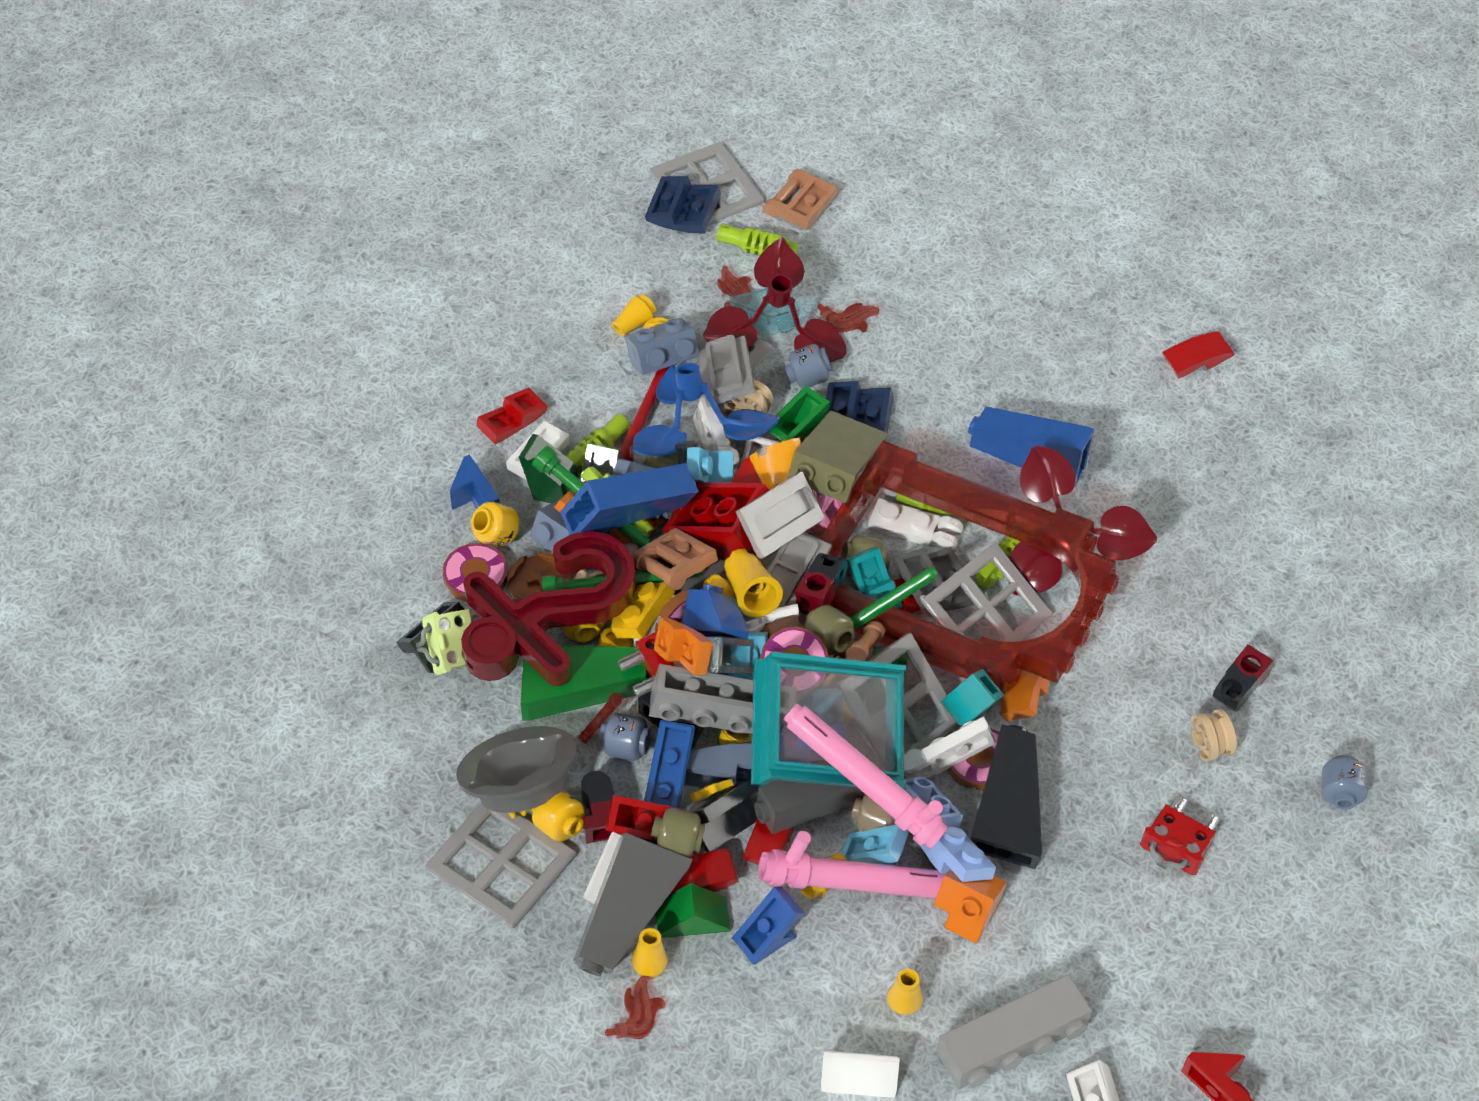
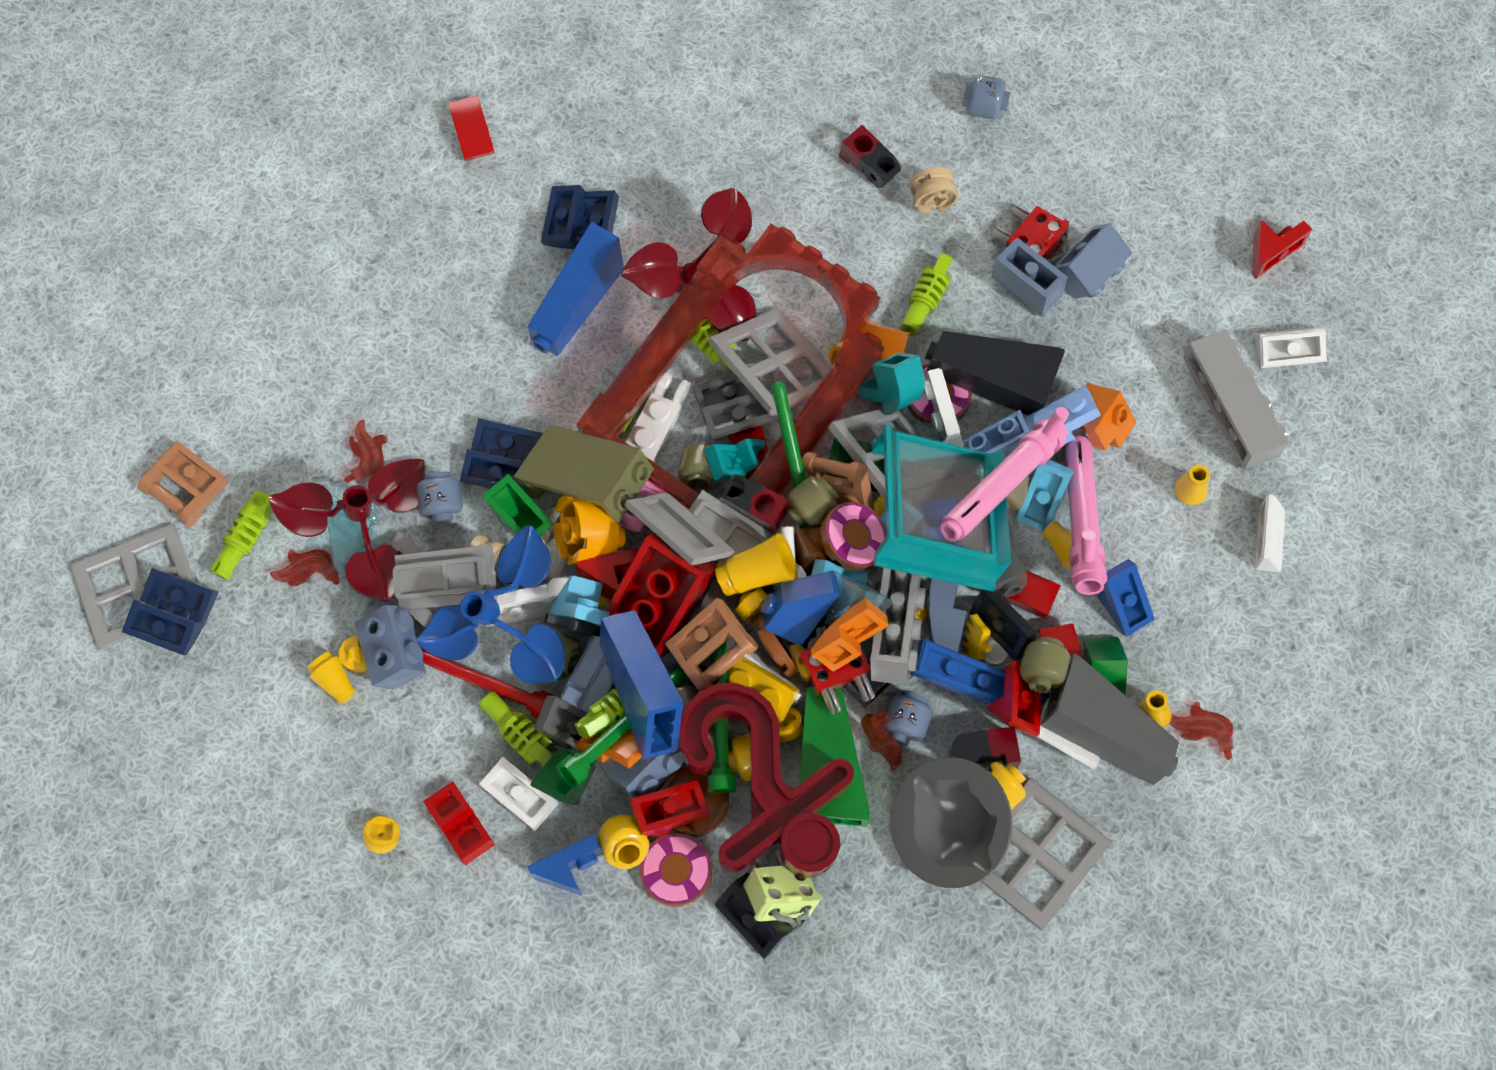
camera: 80 degrees left, 15 degrees up
(498, 363) = (381, 834): none -> yellow tile
(523, 549) = (669, 808): none -> red slope
(1093, 740) = (927, 294): none -> lime hinge
(1120, 448) = (573, 210): none -> dark blue slope
(1124, 825) = (1029, 277): none -> sand blue brick
(1157, 887) = (1093, 261): none -> sand blue brick

